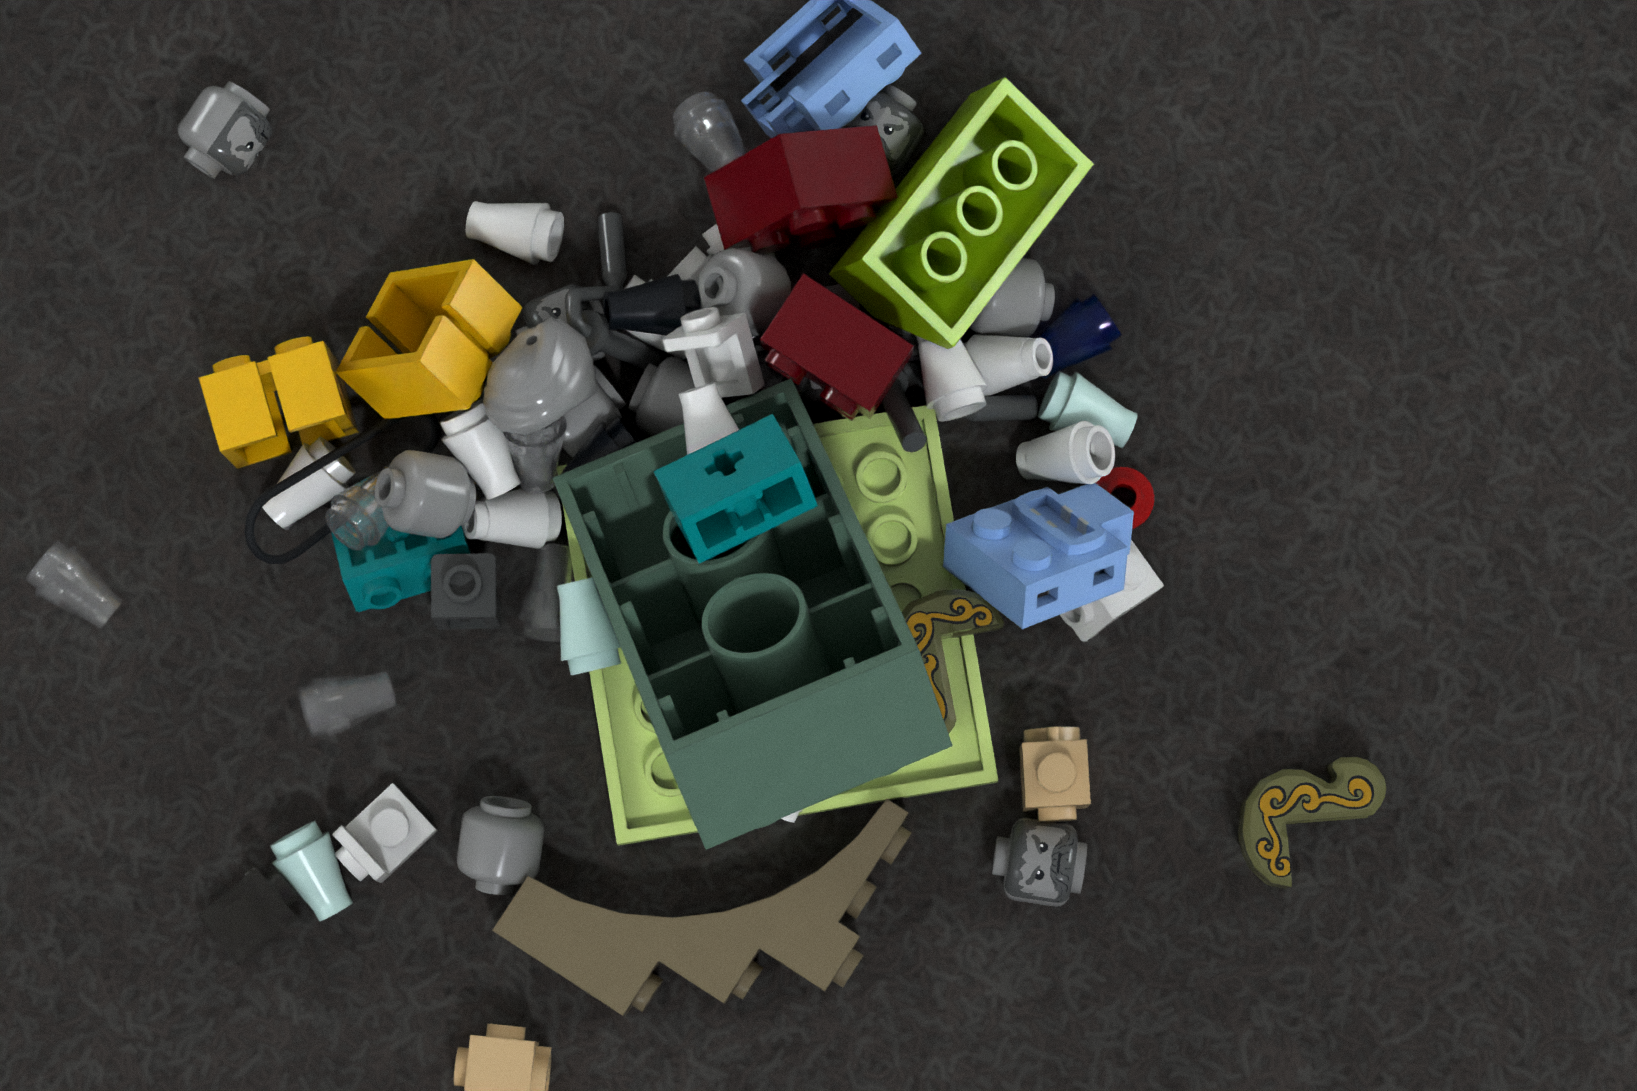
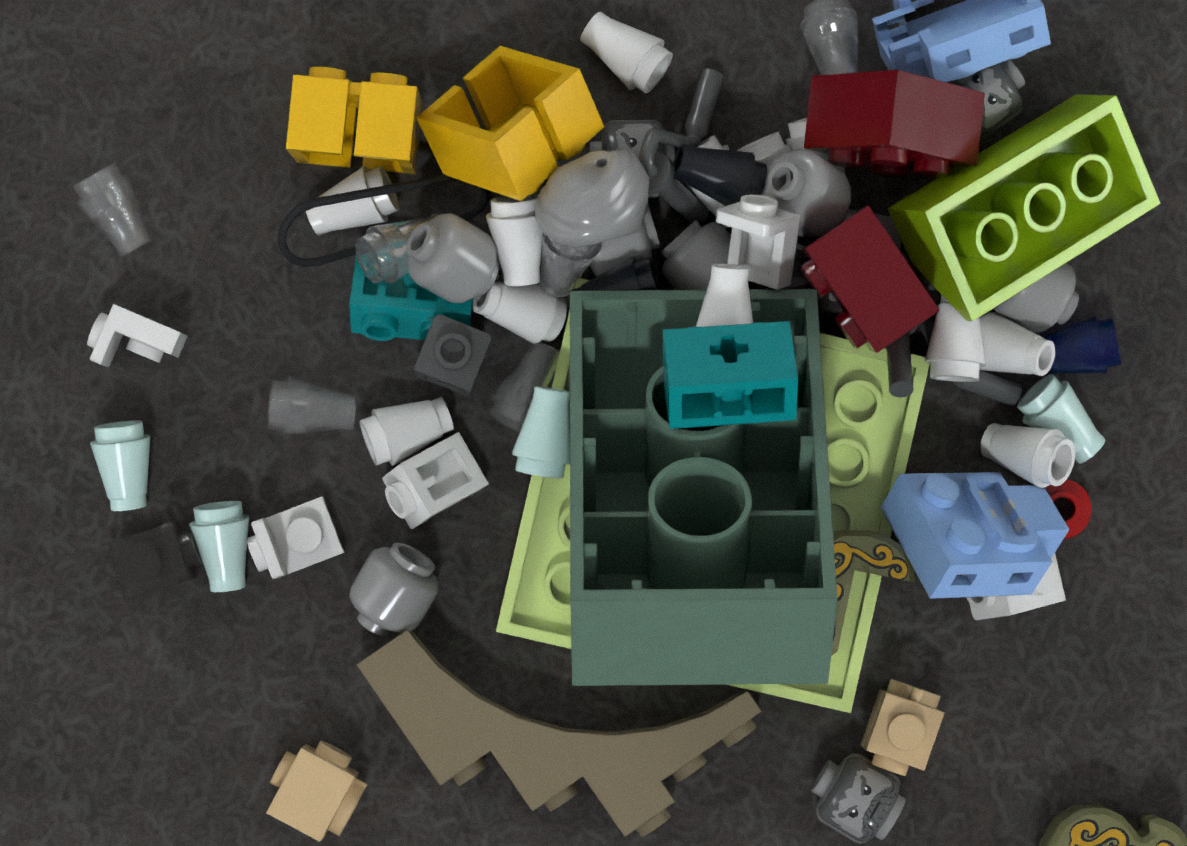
camera: 15 degrees right, 5 degrees up
(157, 695) = (145, 335): none -> white bracket
(182, 830) = (123, 463): none -> light aqua cone
(447, 684) = (404, 429): none -> white cone
(495, 722) = (433, 481): none -> white bracket

